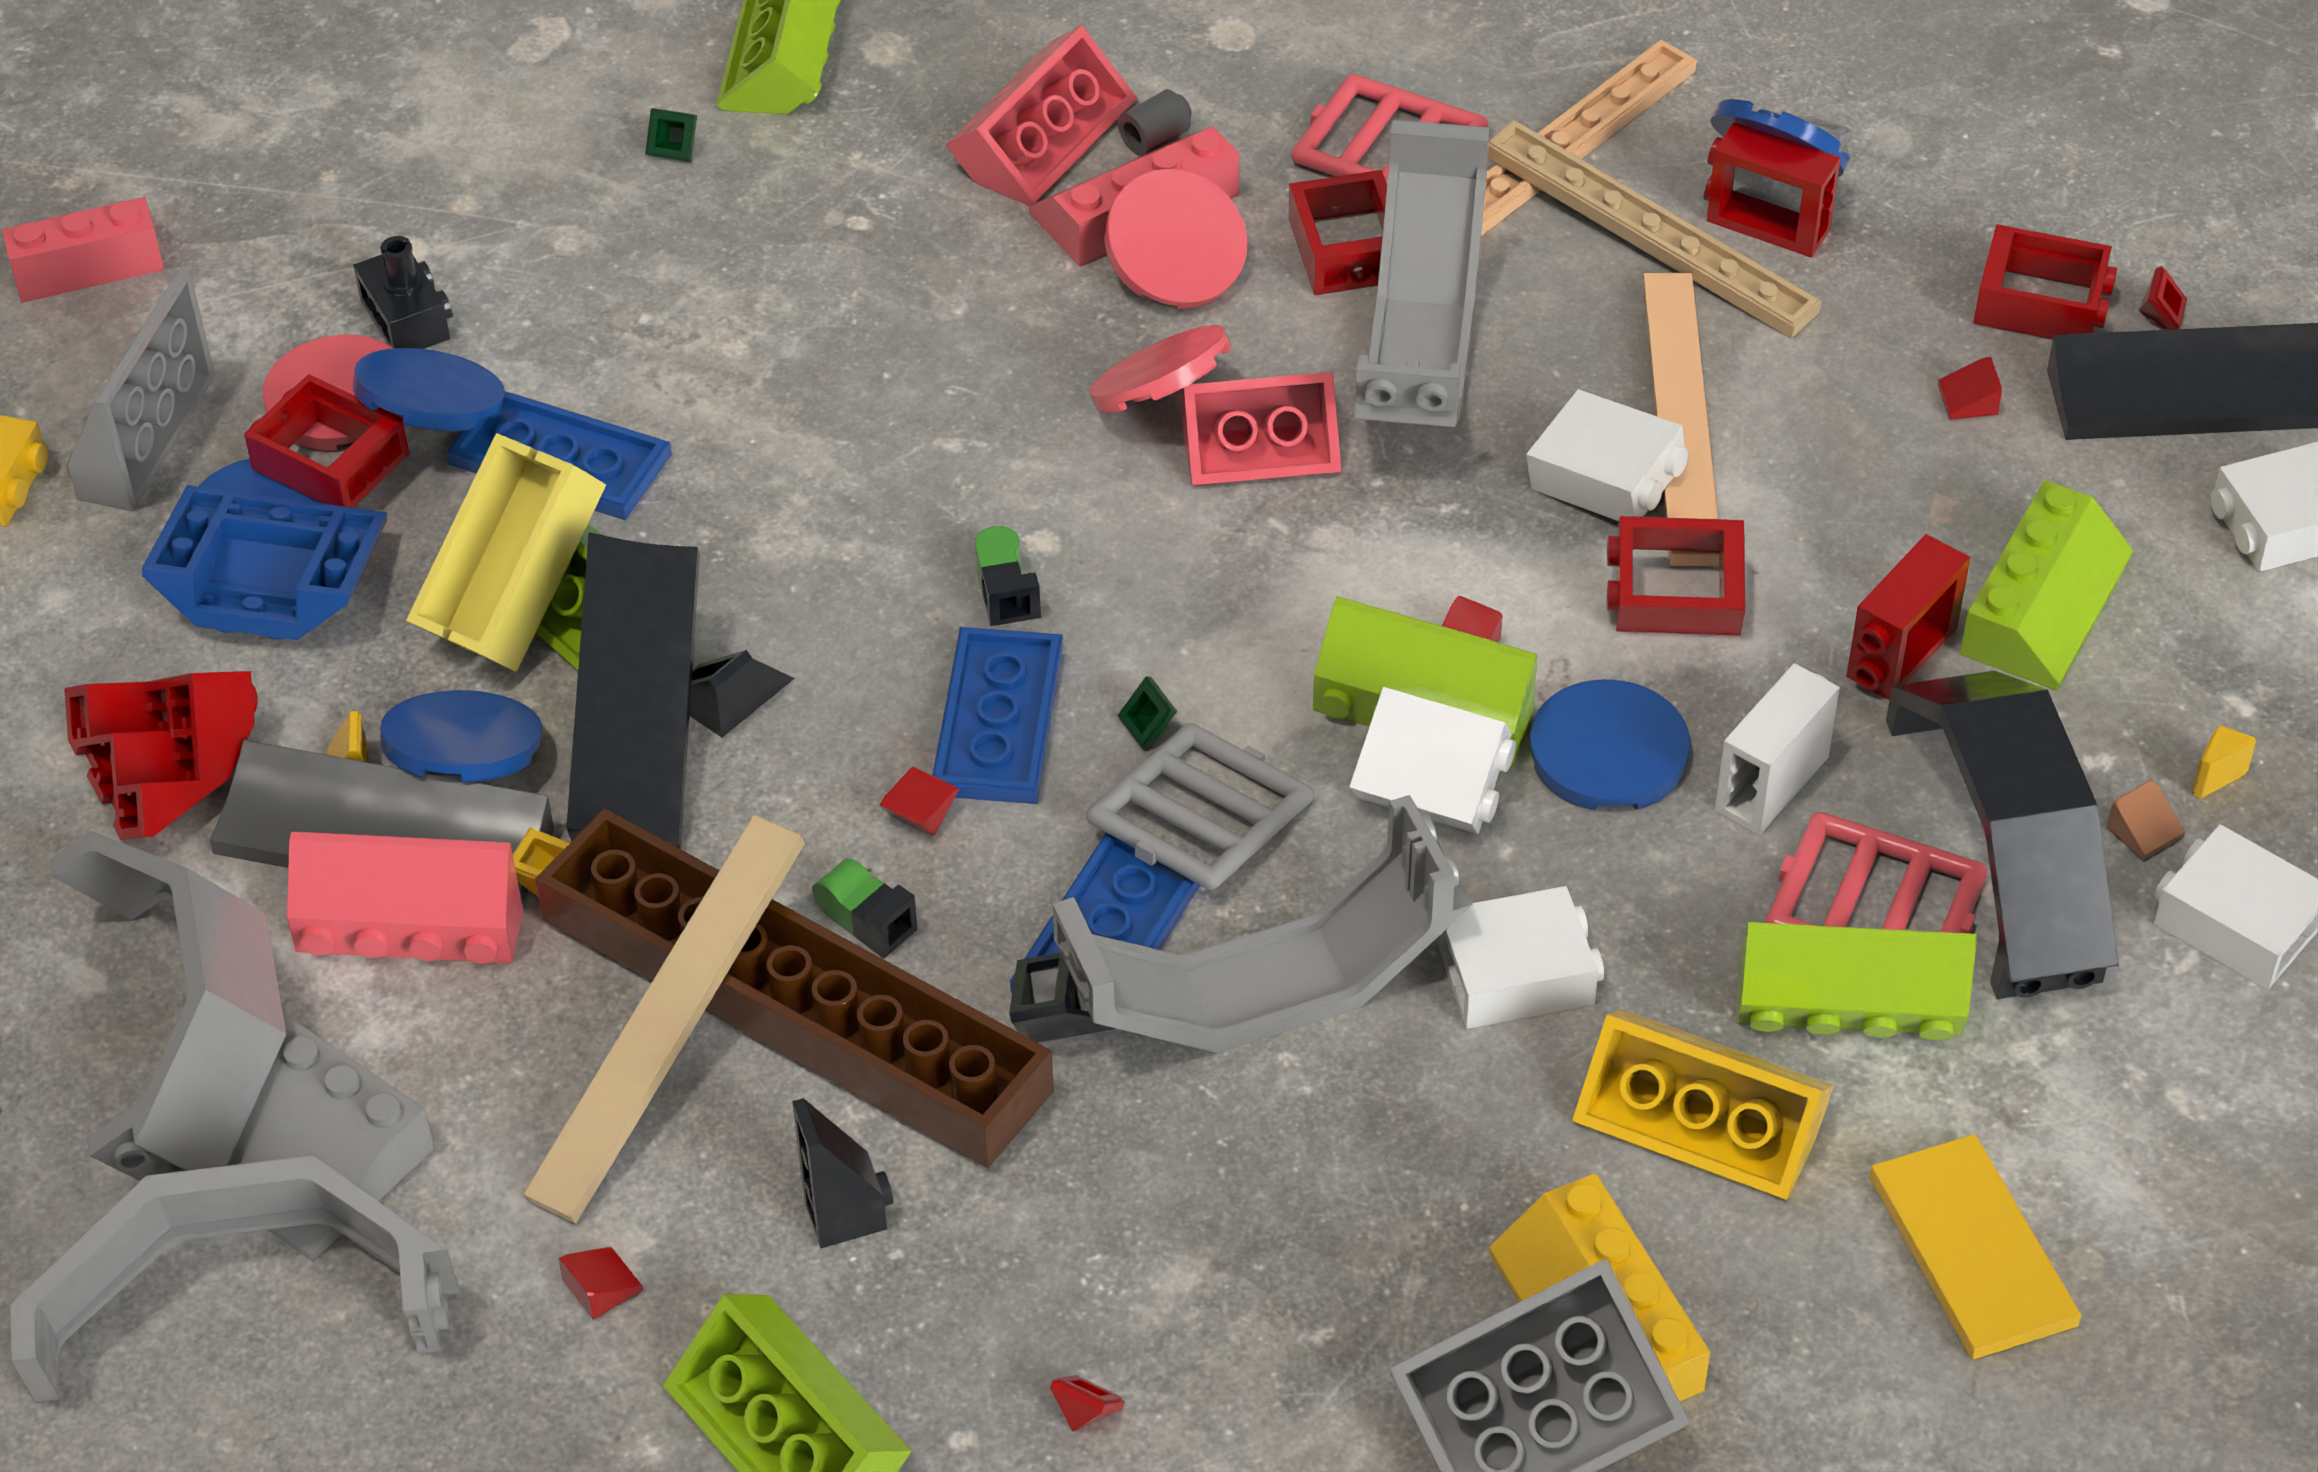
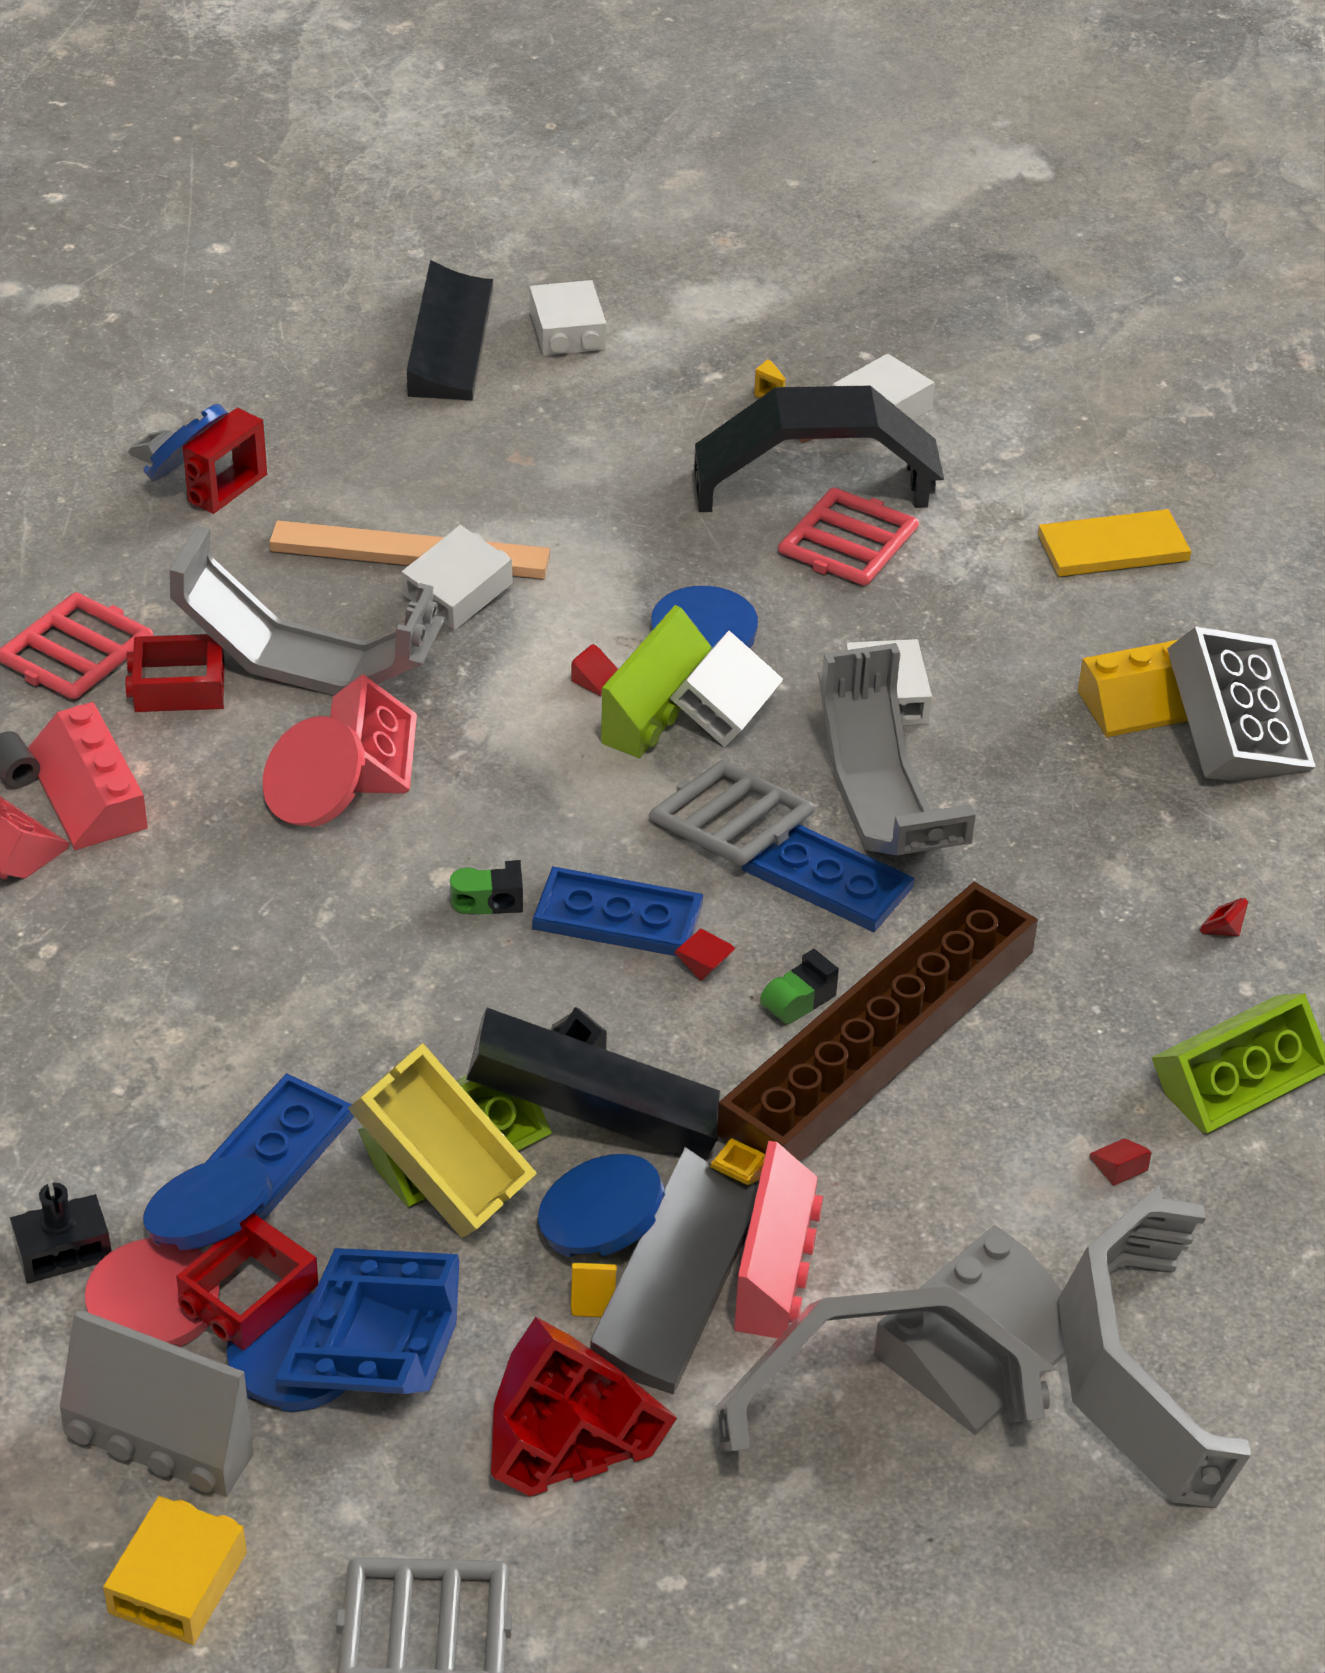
camera: 85 degrees left, 5 degrees down
(664, 1019) = (924, 1080): tan tile -> none
(838, 1180) = (1070, 1004): black slope -> none
(1047, 1001) = (908, 894): black slope -> none
(1147, 713) = (641, 828): dark green slope -> none
(1175, 238) = (167, 752): coral tile -> none
(1594, 121) = (110, 562): light nougat tile -> none
(1653, 229) = (225, 531): tan tile -> none
(1678, 613) = (582, 542): red window -> none
(1702, 1102) = (1009, 622): yellow slope -> none
(1776, 748) = (745, 539): white brick -> none
(1855, 980) = (935, 542): lime slope -> none
(1907, 616) = (630, 440): red window -> none
(1972, 390) = (426, 422): red slope -> none
(2046, 258) = (338, 394): red window -> none
(2047, 587) = (609, 426): lime slope -> none
(2164, 300) = (370, 335): red slope -> none

